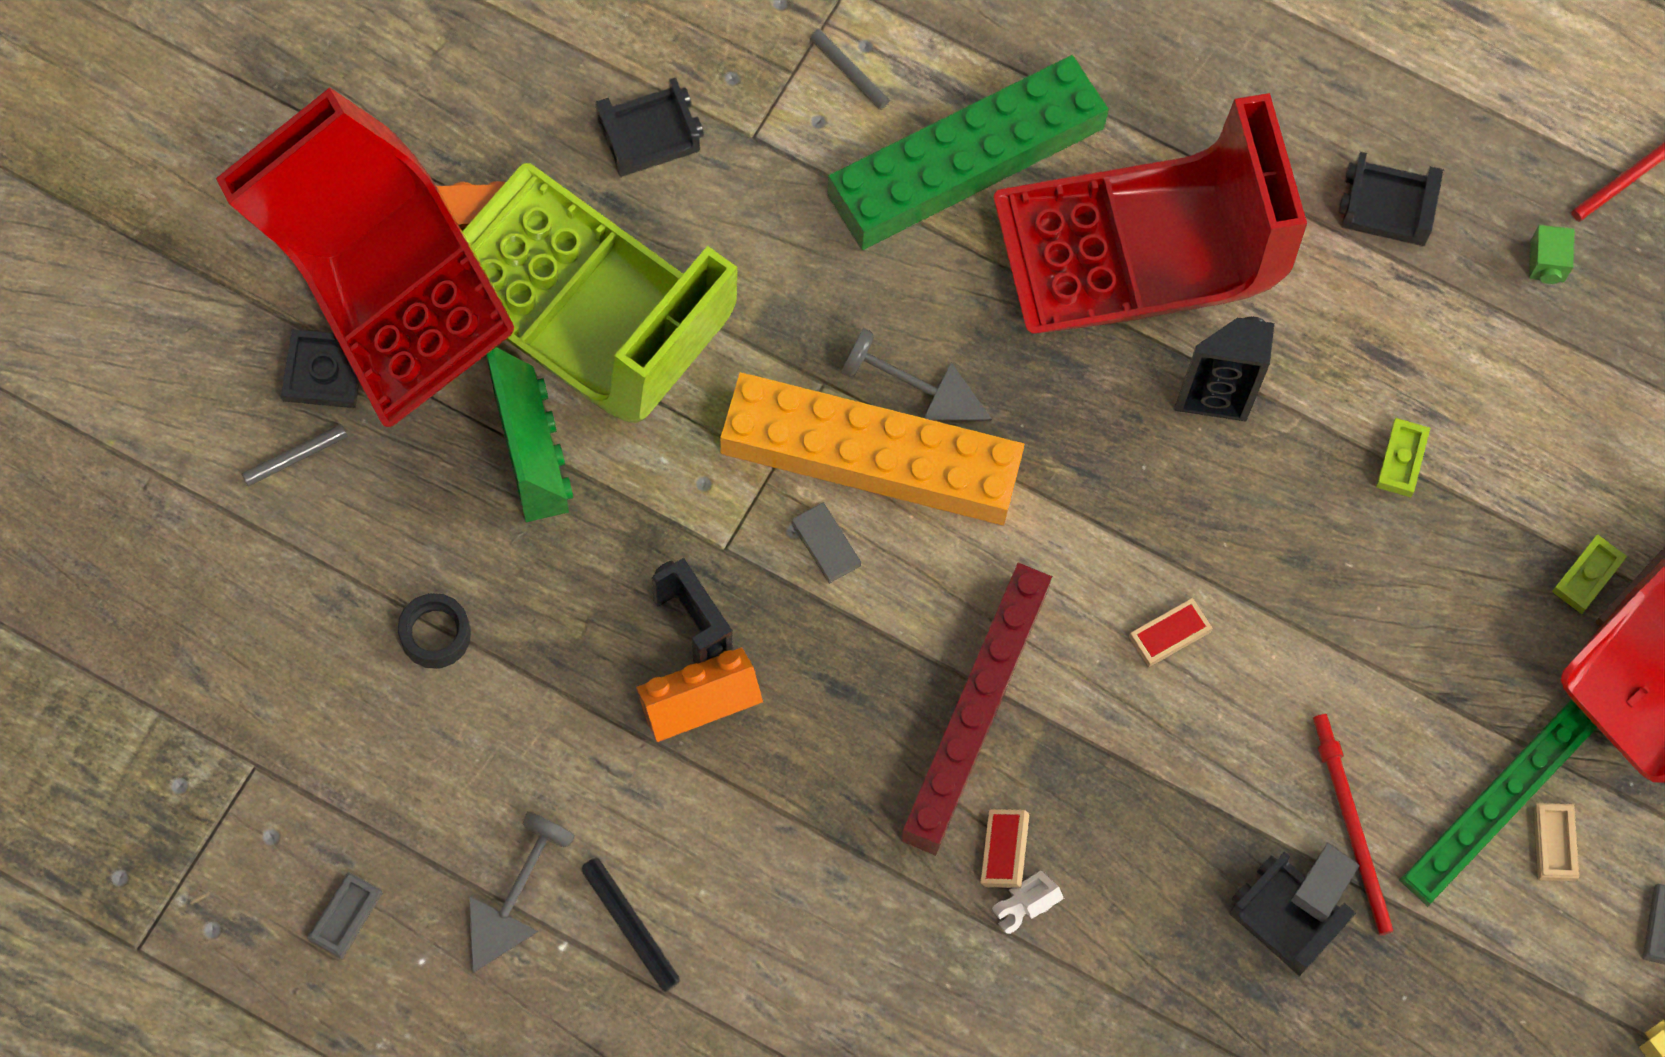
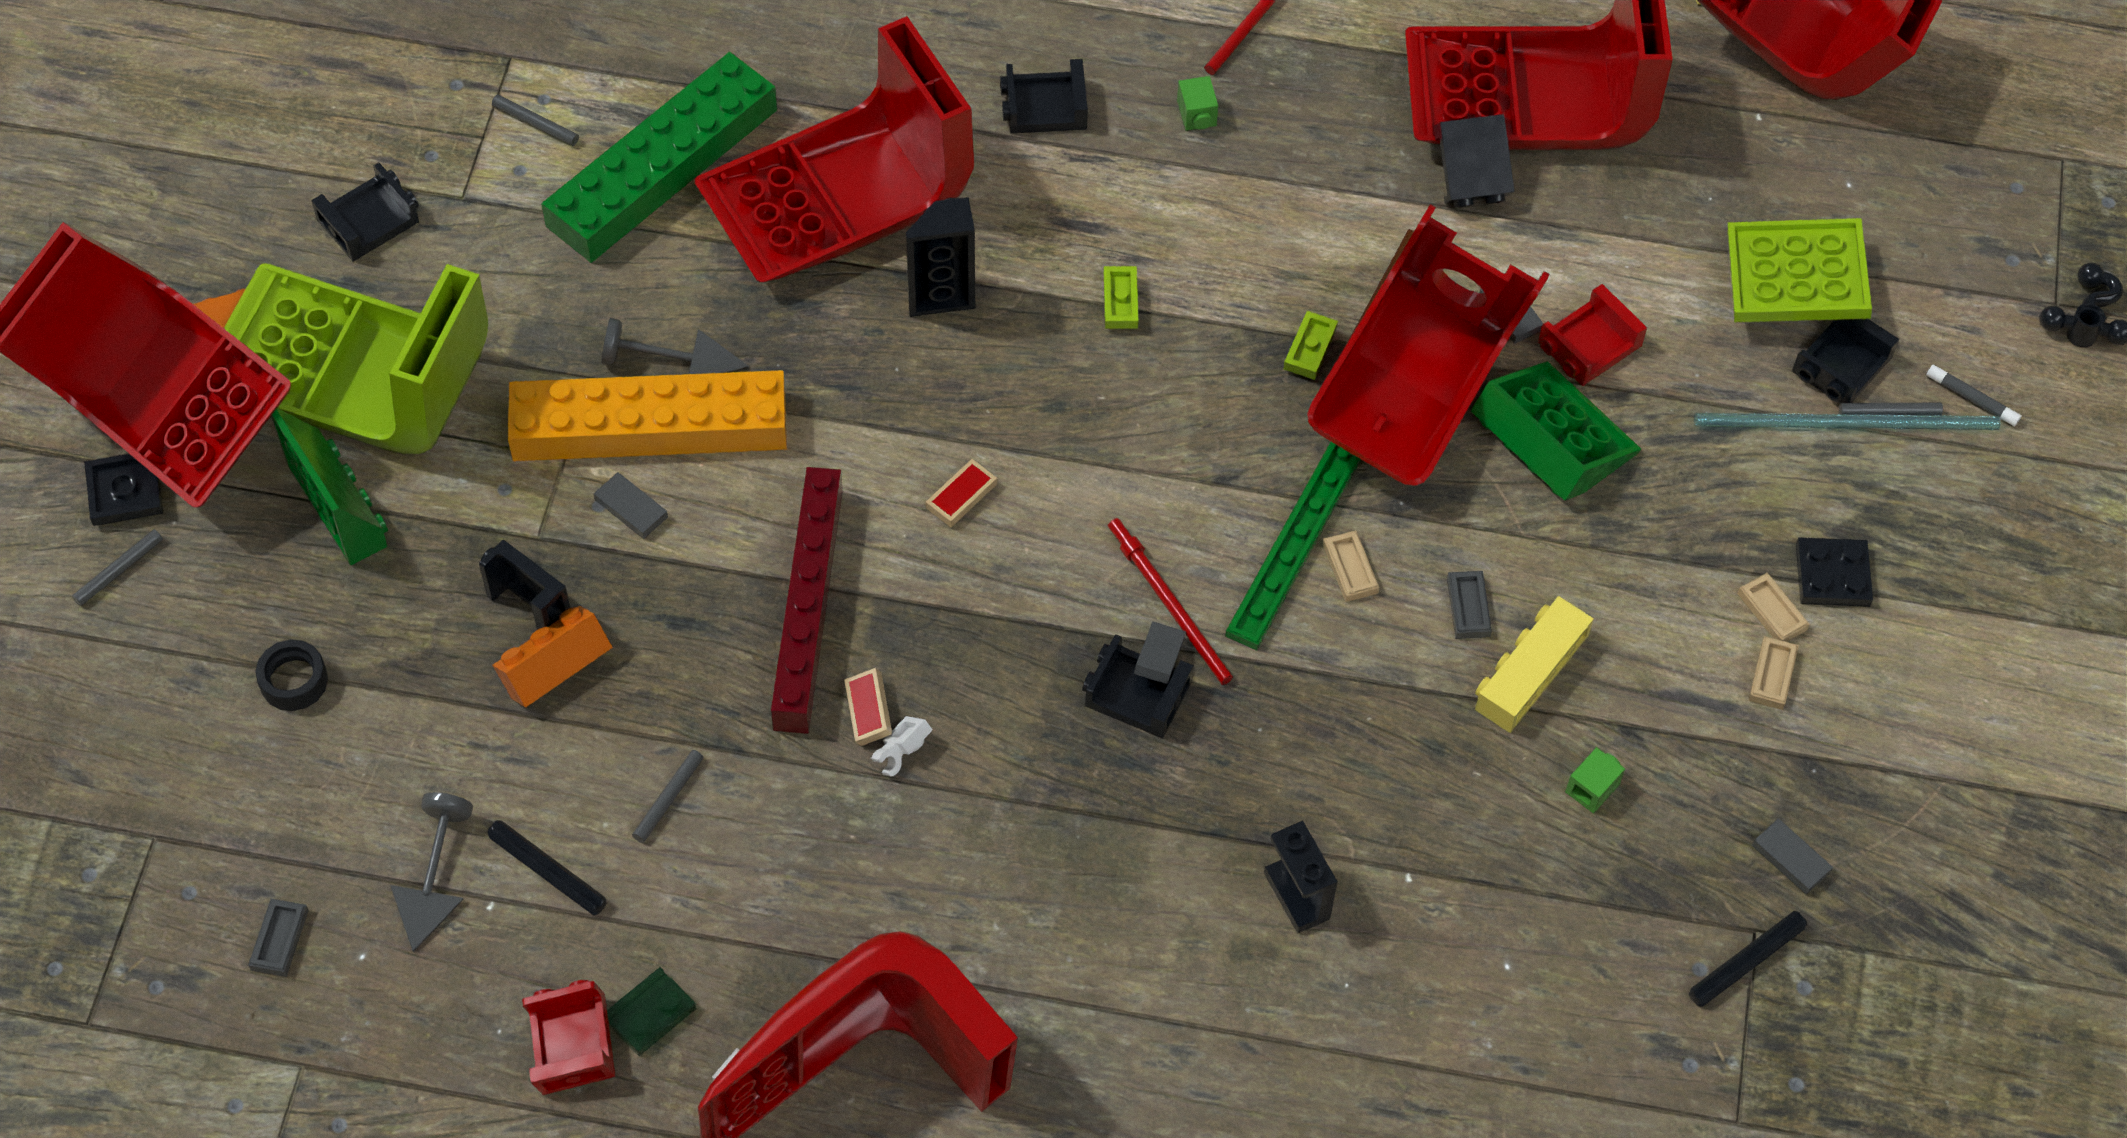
camera: 15 degrees left, 10 degrees down
(773, 882) = (667, 796): none -> dark grey bar

